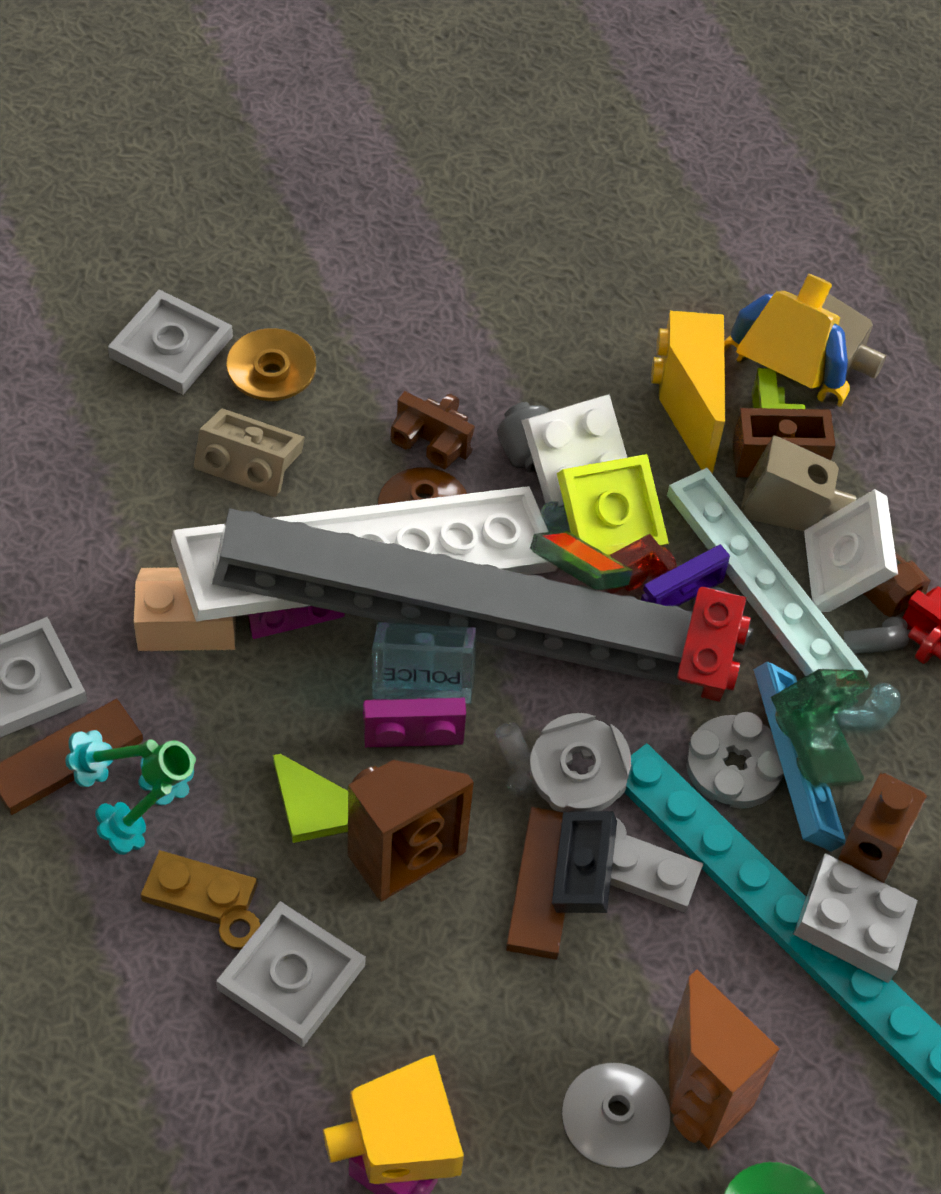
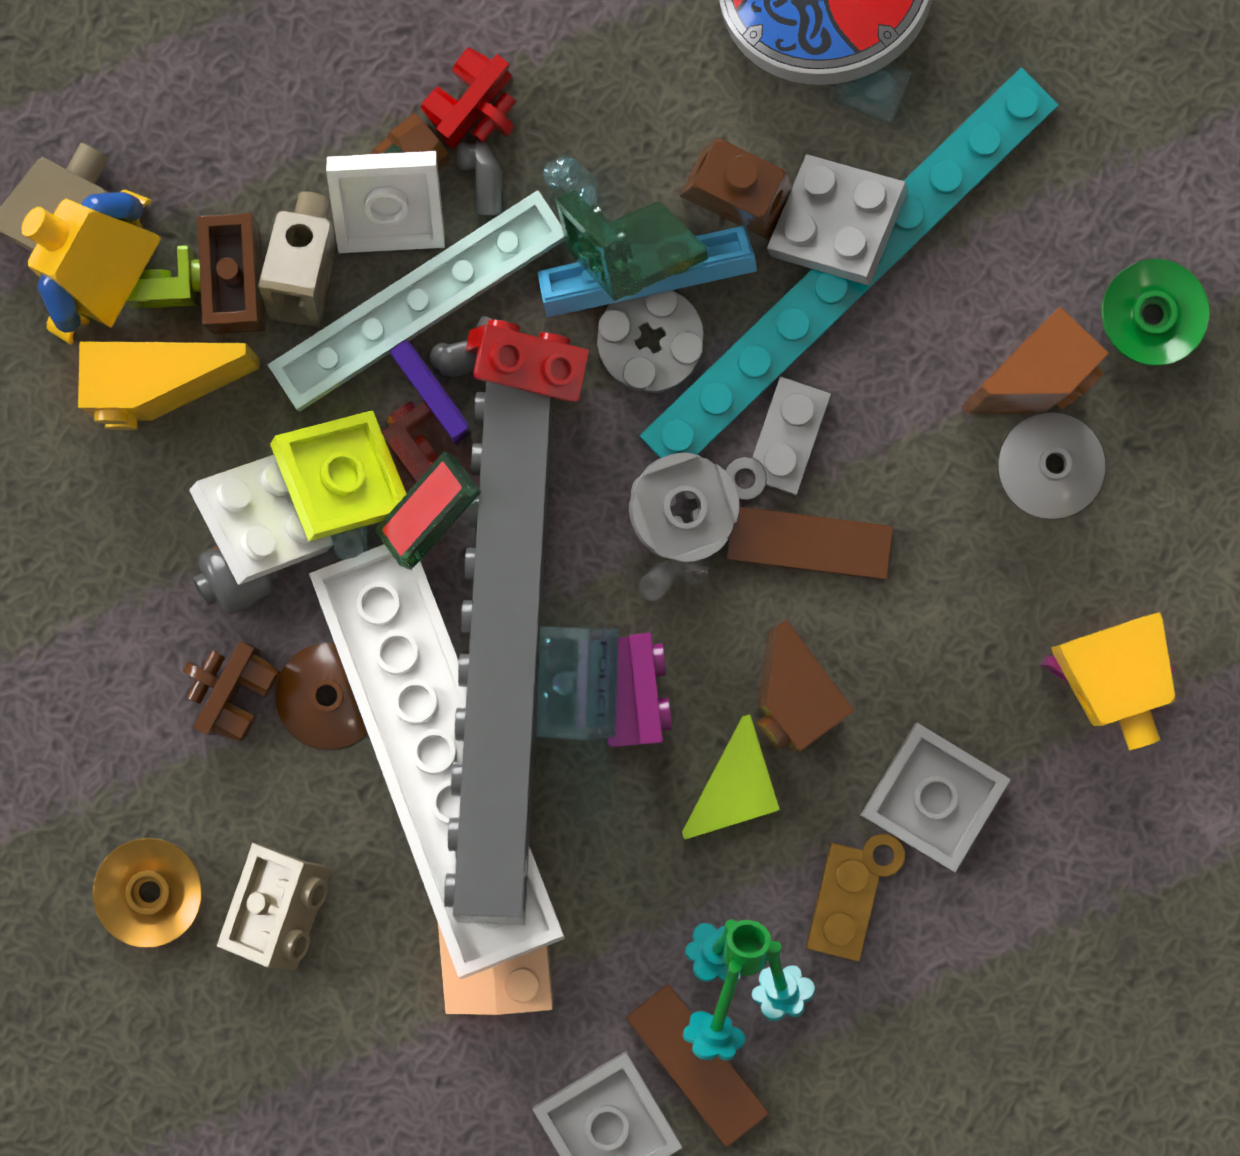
camera: 90 degrees left, 30 degrees up
(170, 341) = (116, 1019): light grey plate -> none
(584, 862) = (799, 500): black plate -> none

